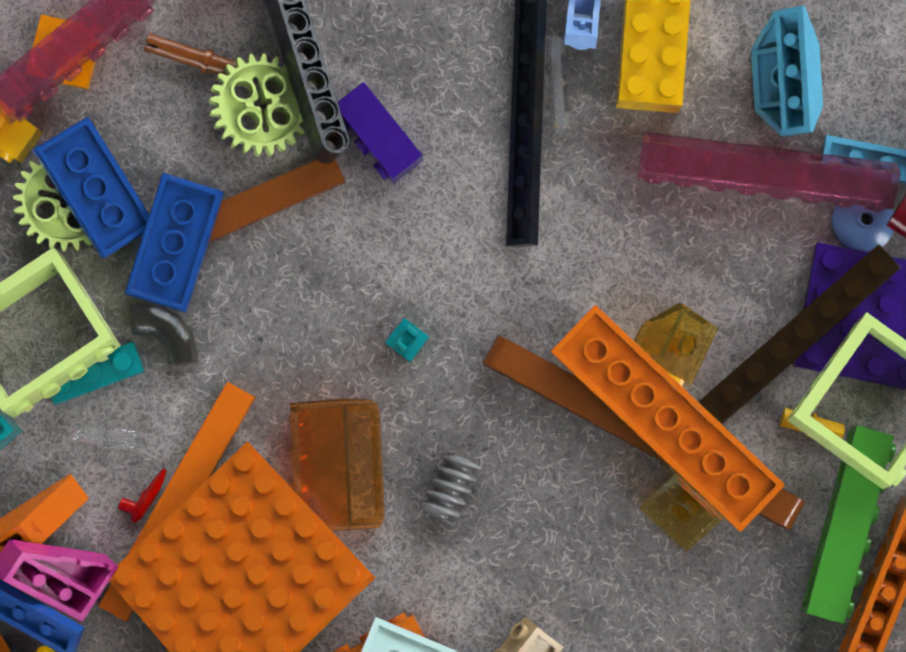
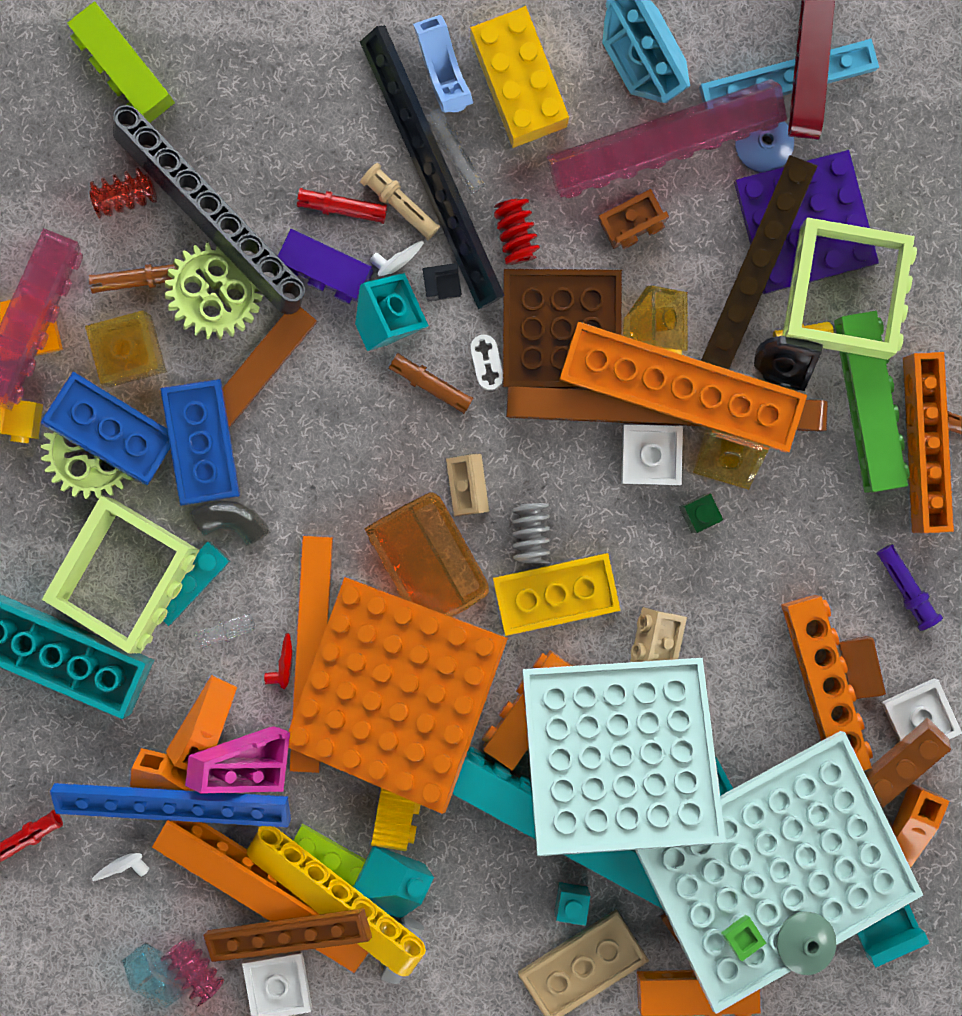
camera: 30 degrees left, 5 degrees up
(148, 119) = (125, 349): none -> clear yellow brick
(407, 340) = (434, 428): teal tile -> none
(412, 411) = (467, 485): none -> tan slope
(413, 75) = (341, 205): none -> red pin
(417, 205) = (387, 311): none -> teal slope
(422, 290) = (424, 379): none -> dark orange pin
(446, 561) = (556, 594): none -> yellow plate
(451, 161) = (397, 261): none -> white bar
(476, 93) = (390, 193): none -> tan pin
(481, 299) = (479, 363): none -> white beam
(483, 203) = (442, 282): none -> black panel
(564, 282) = (542, 317): none -> reddish brown plate
(578, 188) = (515, 231): none -> red piece
(606, 470) = (652, 454): none -> white plate
(627, 550) = (701, 513): none -> dark green brick
(698, 232) = (633, 219): none -> dark orange bracket
(783, 443) = (787, 361): none -> black tile

